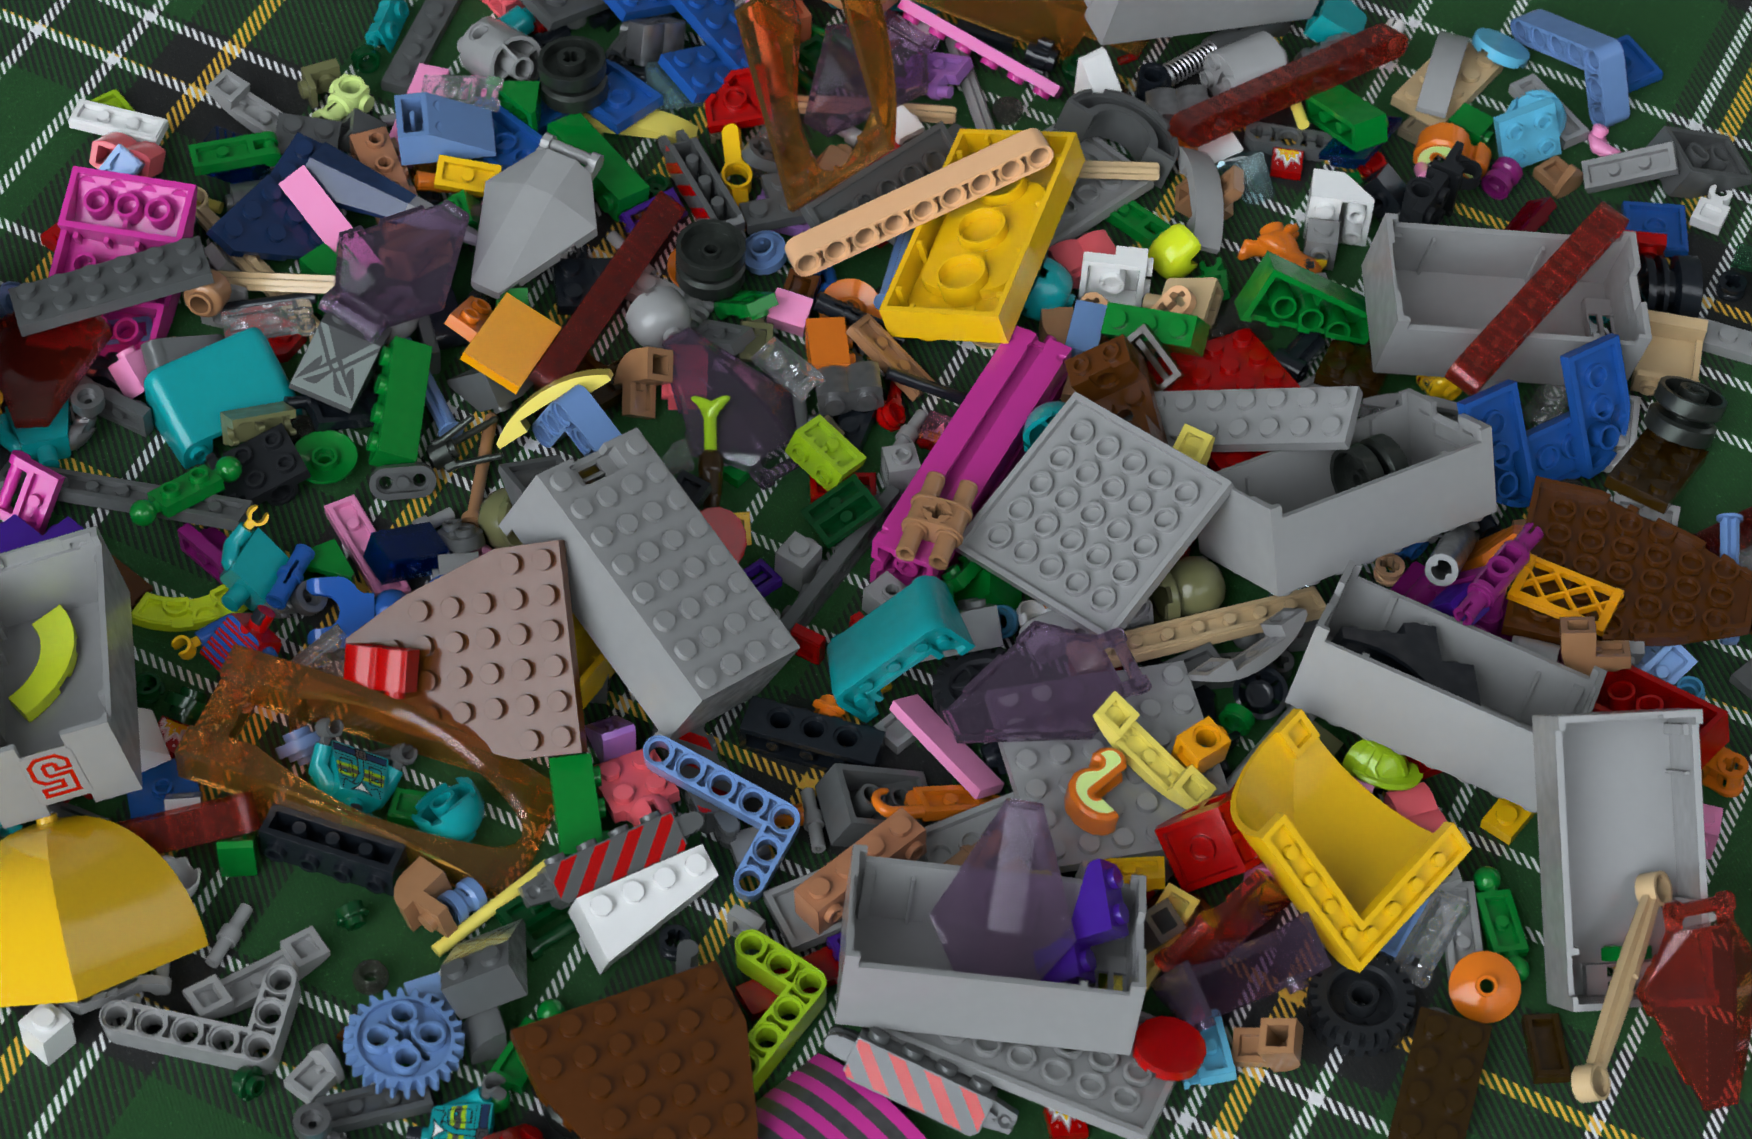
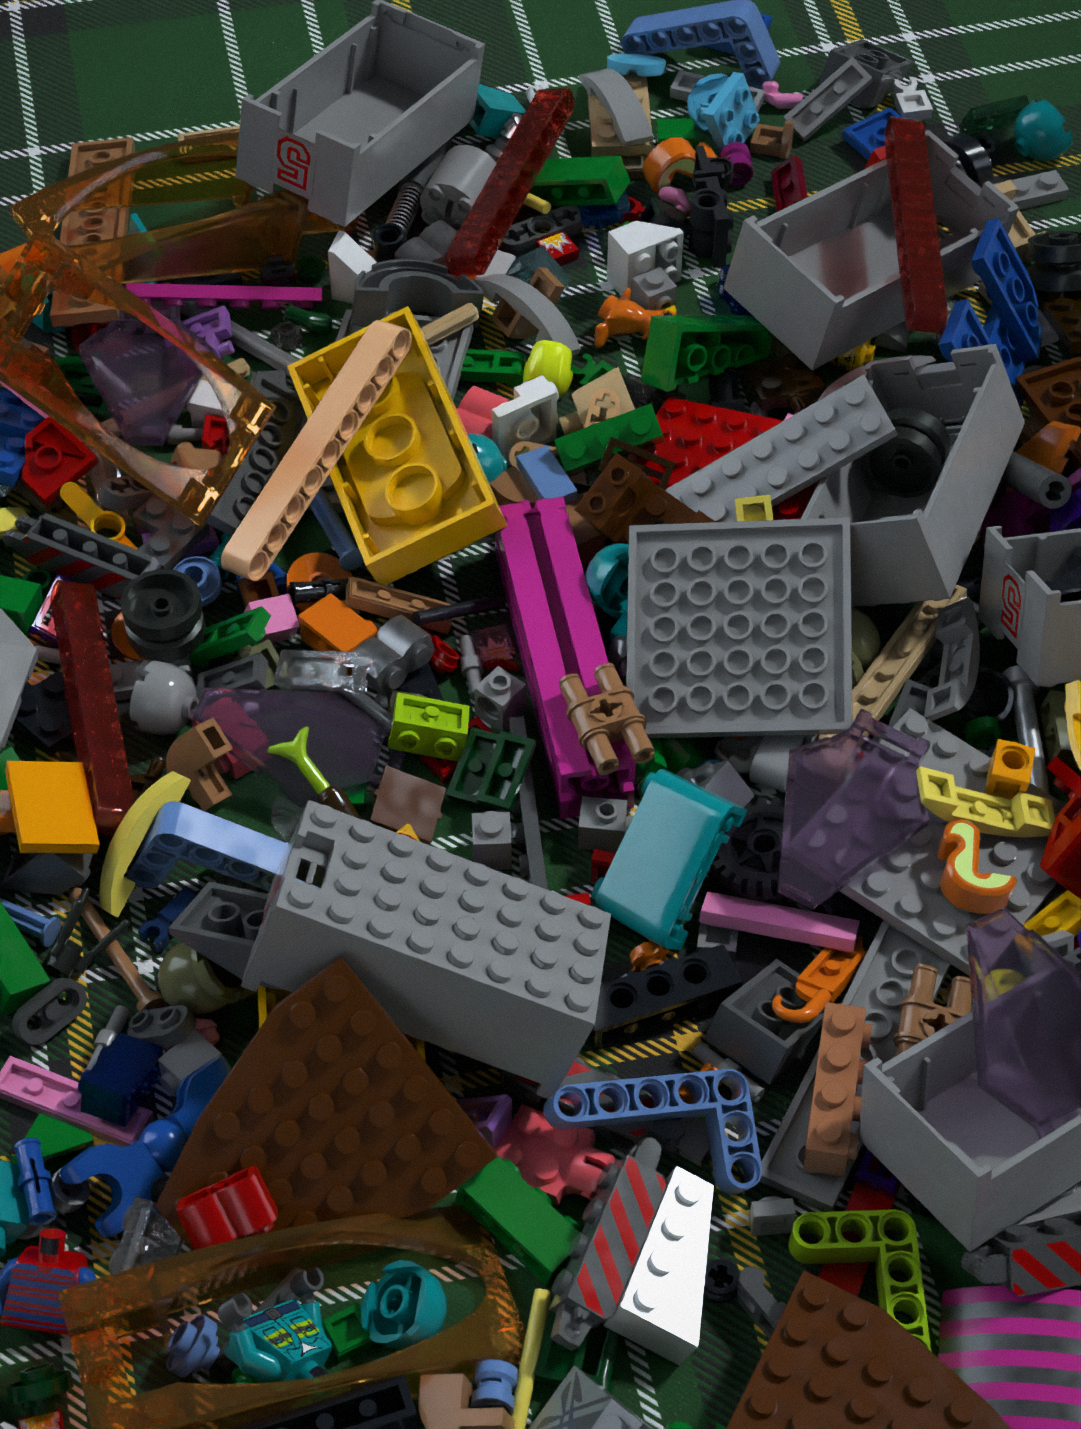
camera: 35 degrees left, 0 degrees up
(765, 498) = (406, 800): none -> reddish brown piece
(1033, 108) = (314, 321): none -> dark green arm

